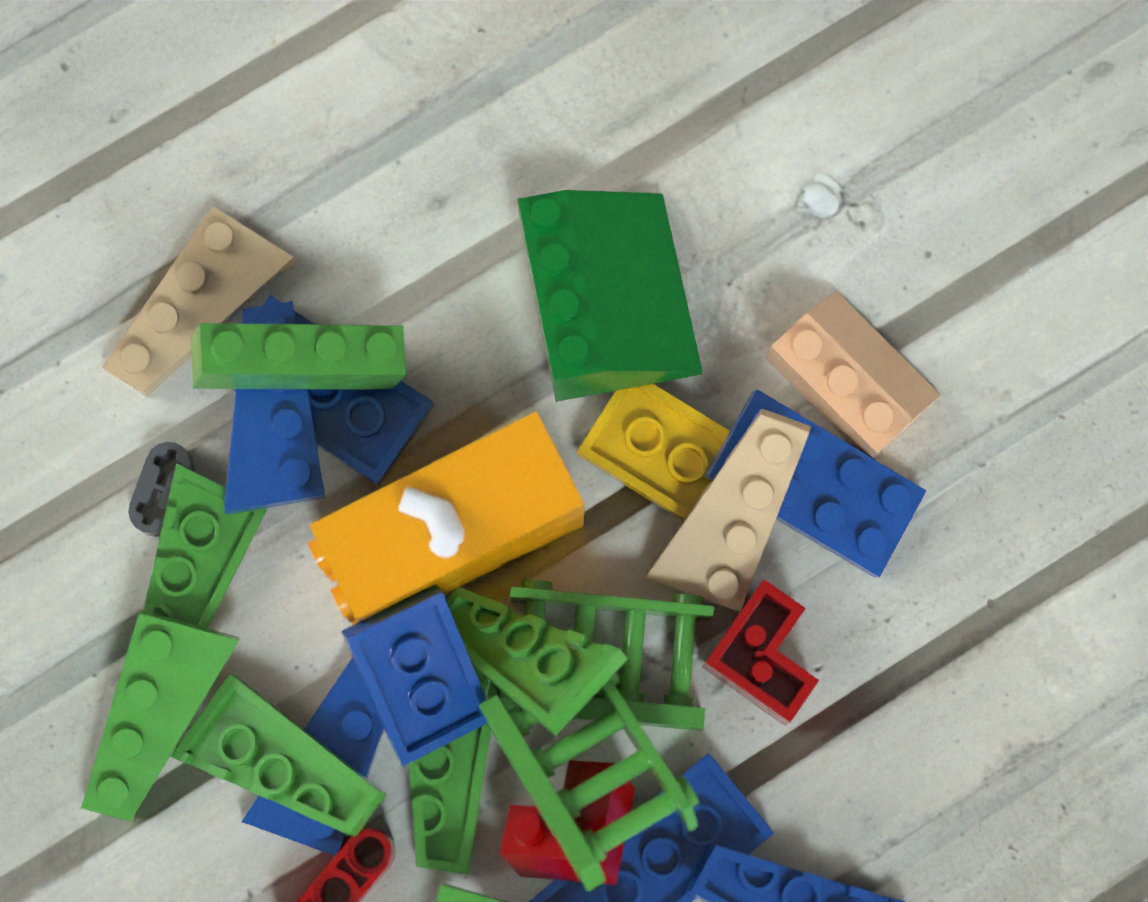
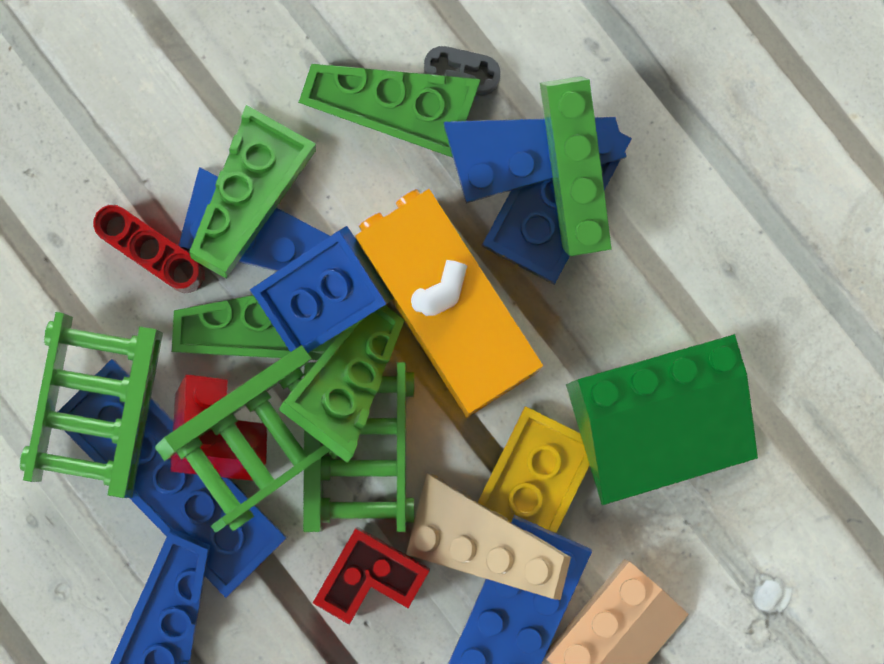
camera: 85 degrees right, 5 degrees up
(156, 698) = (290, 87): bright green wing -> none
(206, 284) = (629, 82): tan wing -> none

